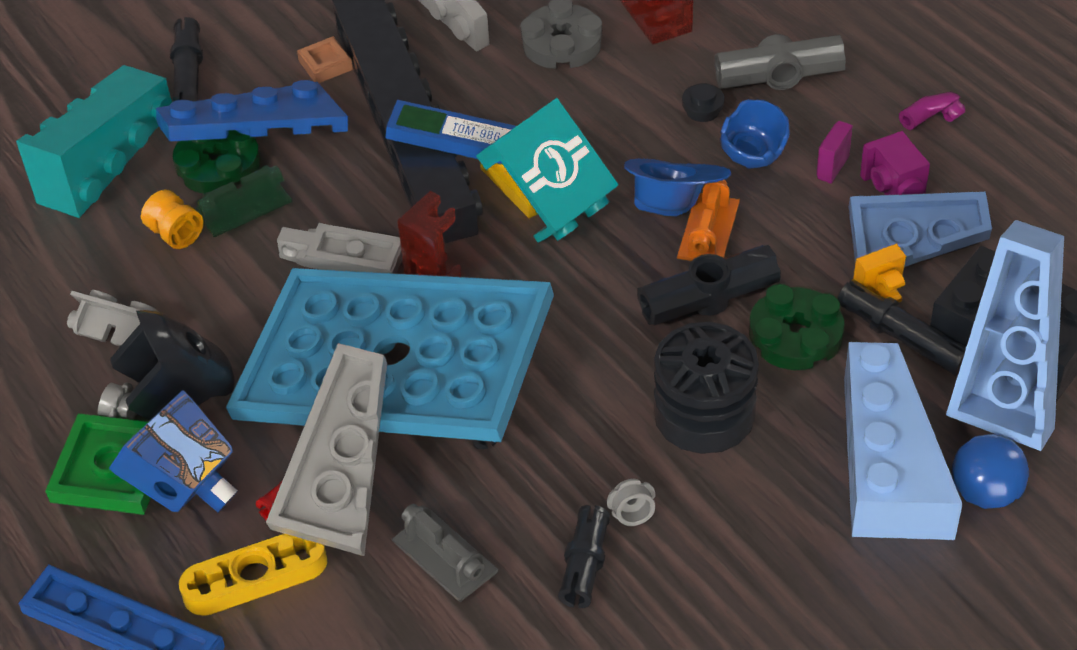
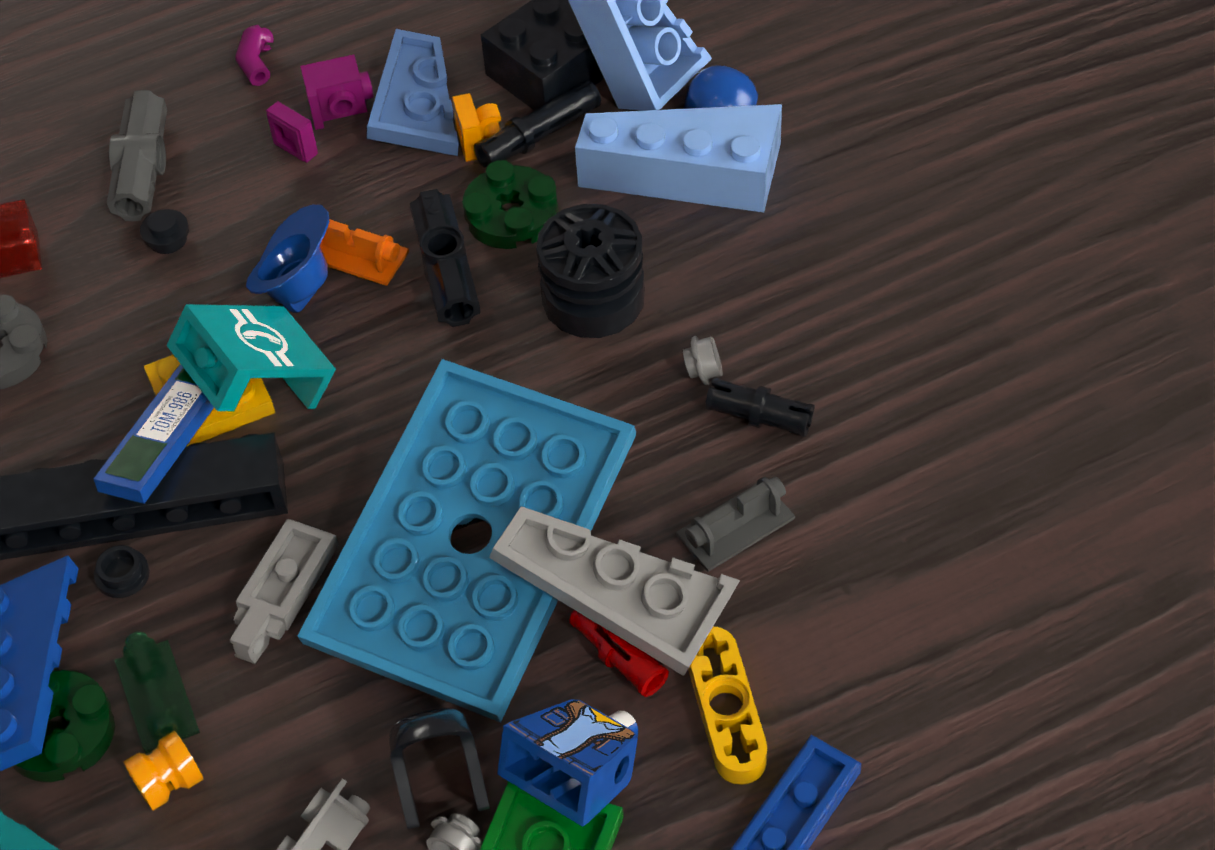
camera: 80 degrees left, 5 degrees up
(350, 157) = (121, 571): none -> black plate
(423, 239) = (329, 480): clear red hinge -> none
(755, 133) = (246, 186): blue hair -> none

